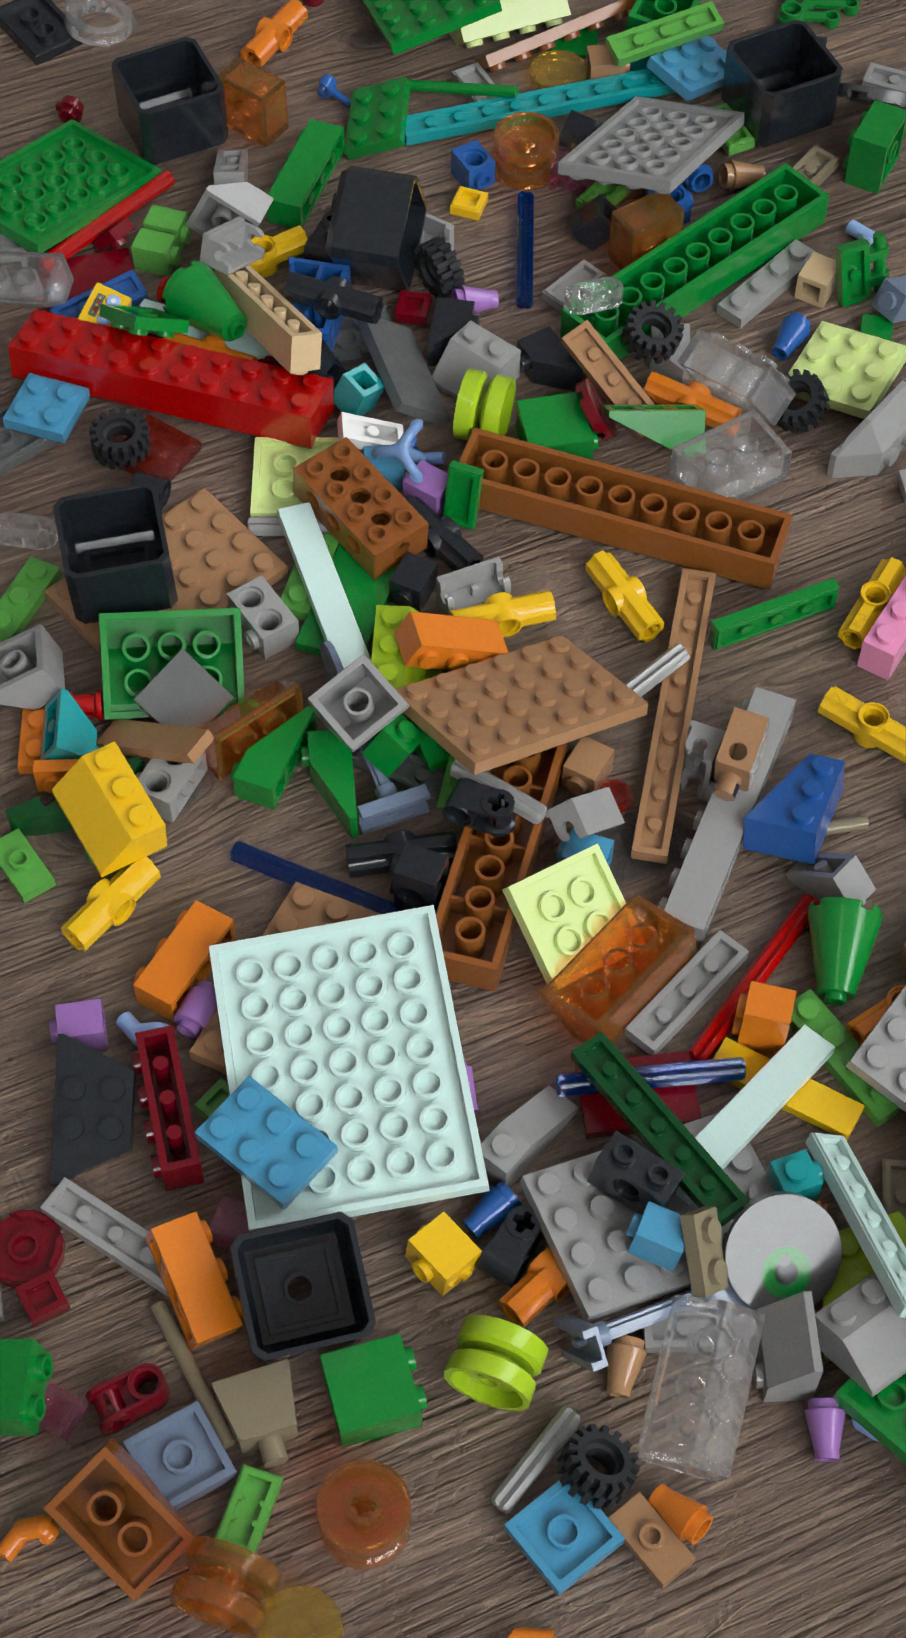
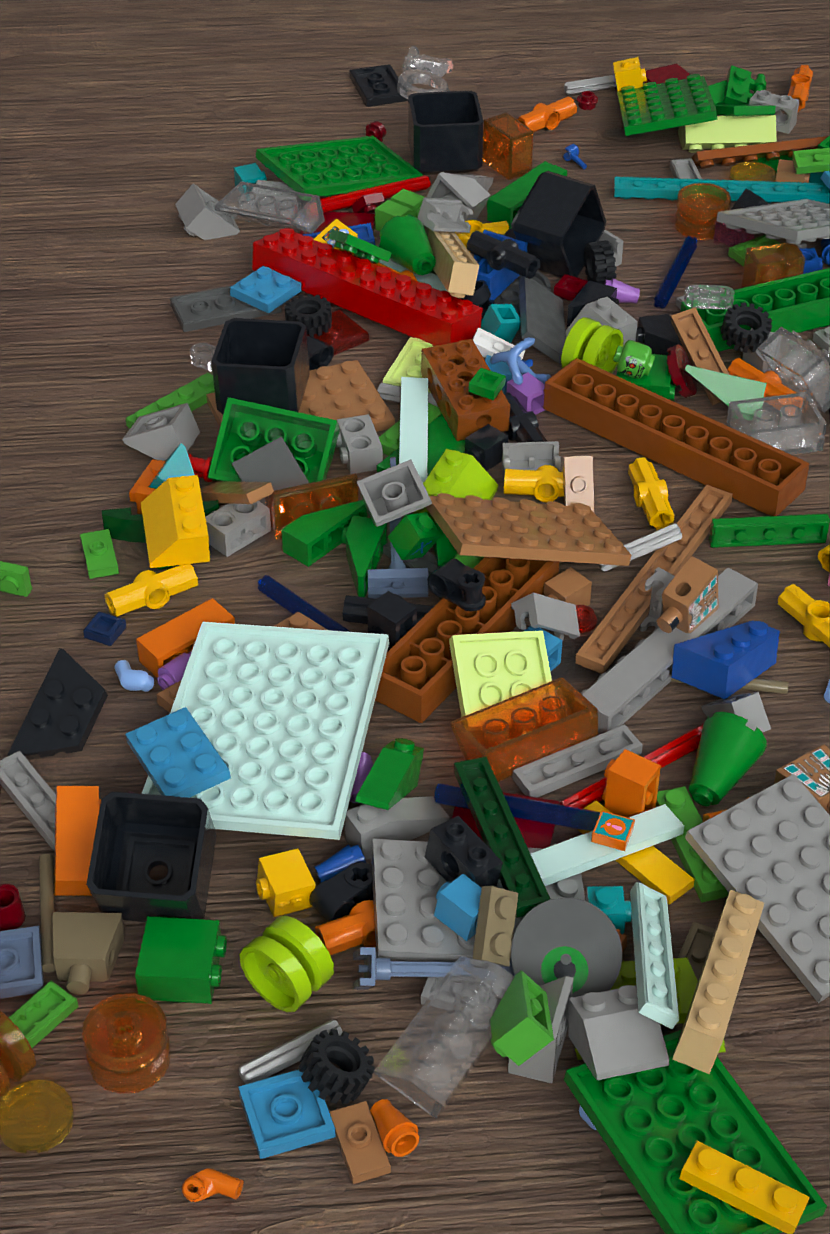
camera: 20 degrees right, 15 degrees down
(78, 971) = (104, 628): none -> dark blue tile
(82, 1022) = (90, 655): medium lavender brick -> none
(169, 1109) = (124, 711): dark red brick -> none
(377, 118) = (604, 170): green plate -> none
(397, 506) = (487, 383): none -> green plate
(447, 641) = (482, 477): orange brick -> none
(463, 494) = (549, 398): green tile -> none
(464, 88) = (671, 169): green bar -> none
(468, 203) = (645, 238): yellow tile -> none
(473, 166) = (657, 215): blue brick -> none
(505, 1085) = (392, 774): none -> green slope
(524, 804) = (492, 588): light grey axle -> none
(544, 415) = (634, 359): none -> bright green head
(544, 608) = (578, 480): none -> plate
(593, 222) = (732, 263): black brick -> none
(625, 1360) = (399, 1002): medium nougat cone -> none
(769, 1081) = (613, 830): none -> orange tile
(779, 1360) = (521, 1020): none -> bright green slope
(825, 1428) = (551, 1102): medium lavender cone -> none

